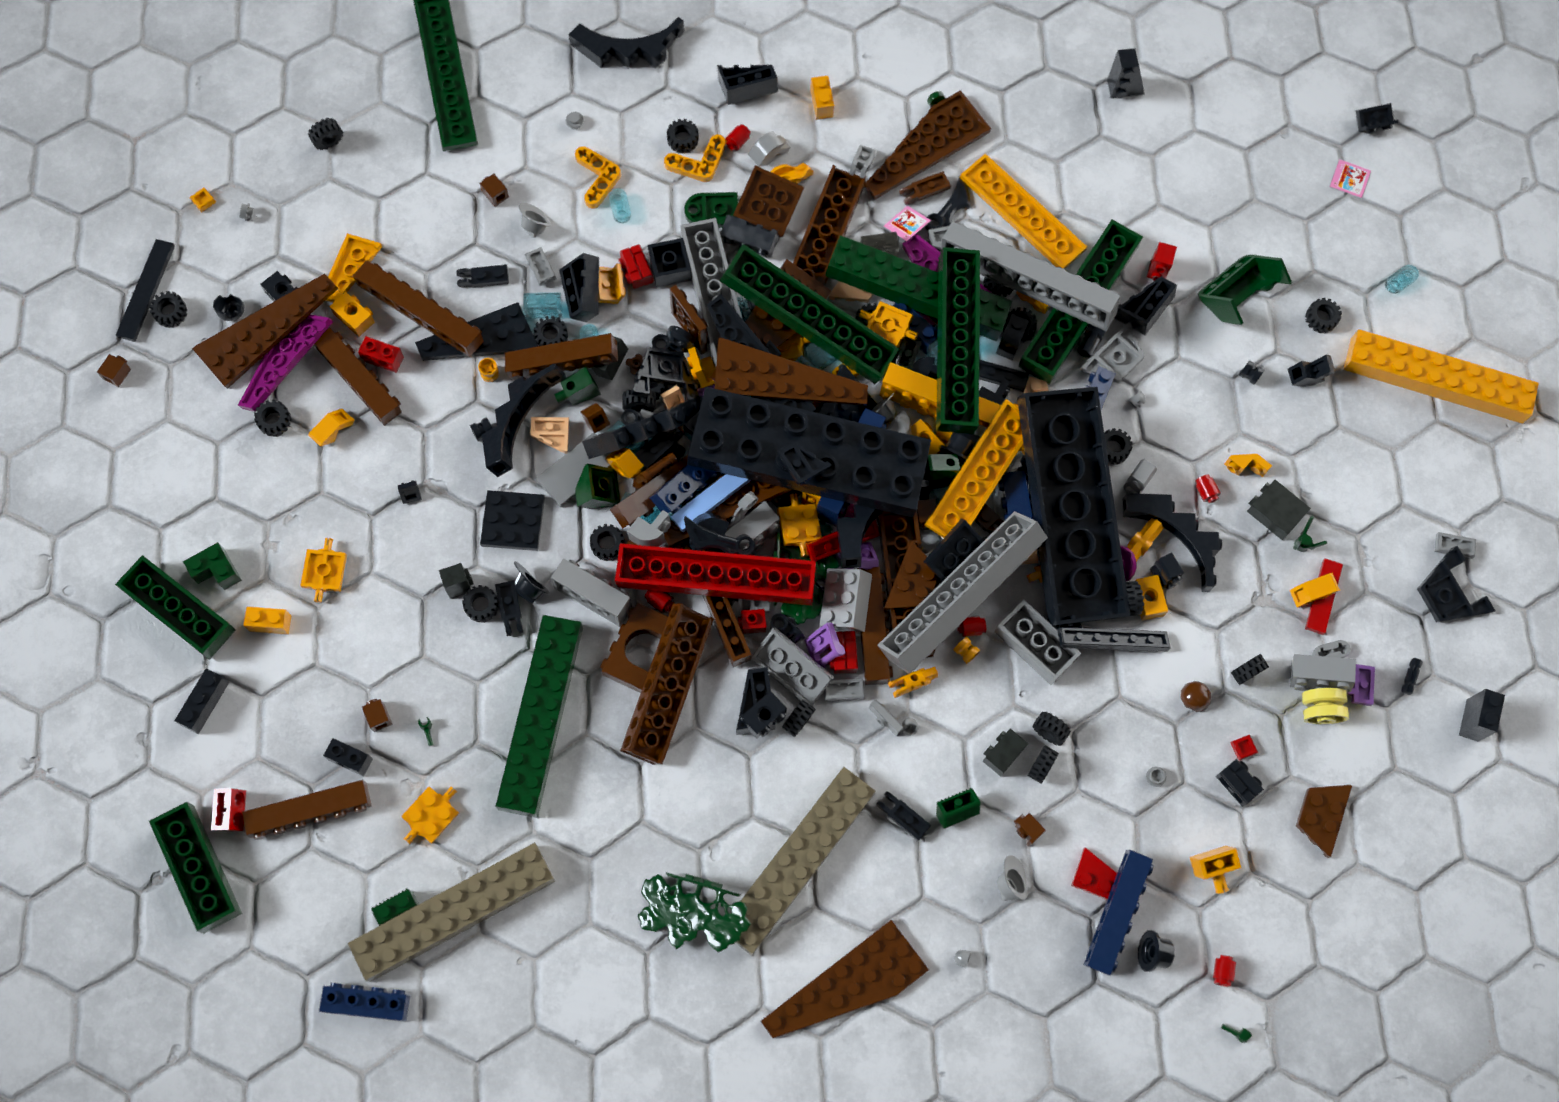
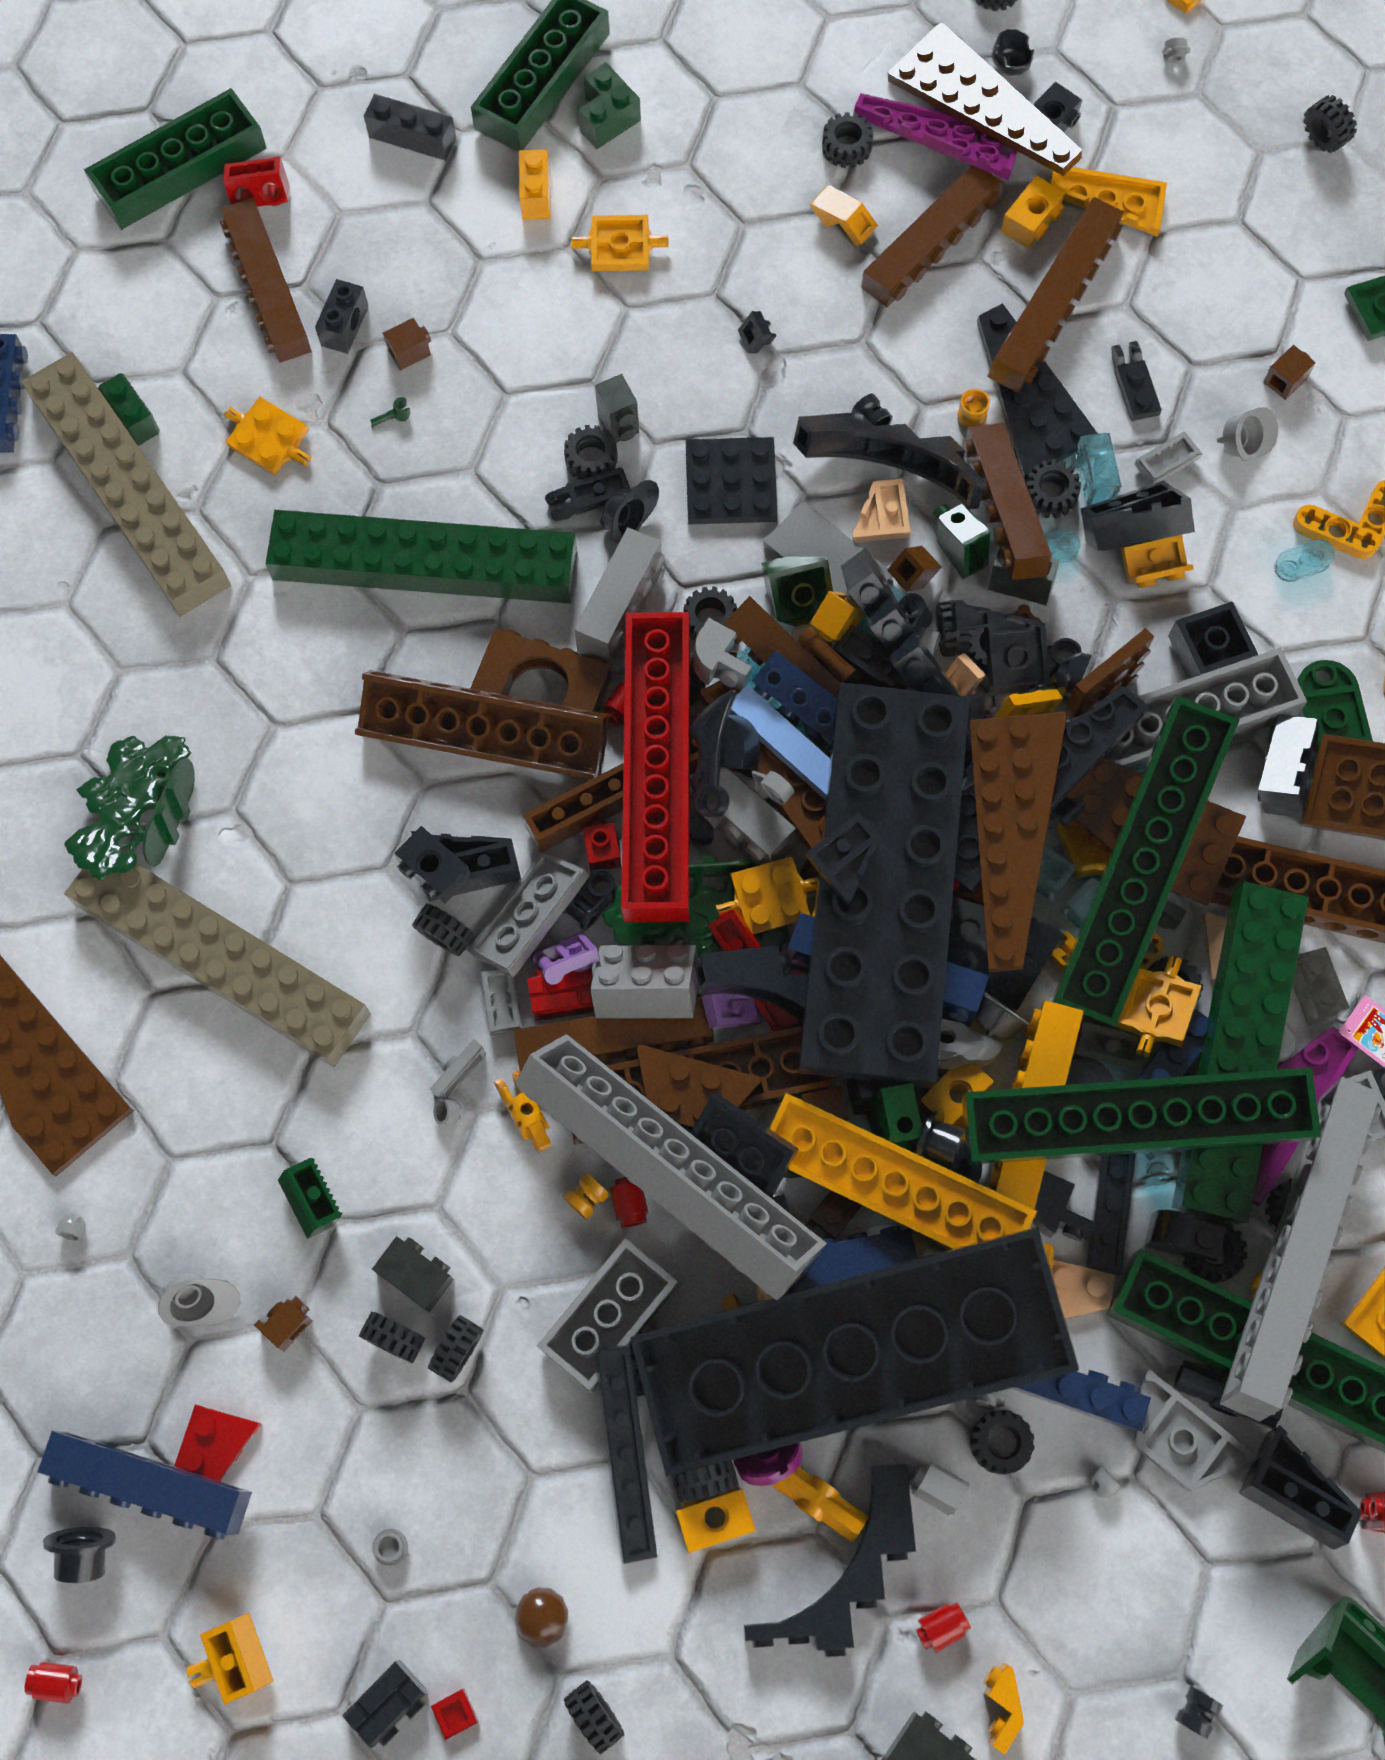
camera: 90 degrees right, 0 degrees up
(381, 354) = (972, 259): red brick -> none
(636, 266) = (1199, 593): red brick -> none
(905, 817) = (296, 1116): black hinge -> none
(1168, 571) = (763, 1548): black brick -> none

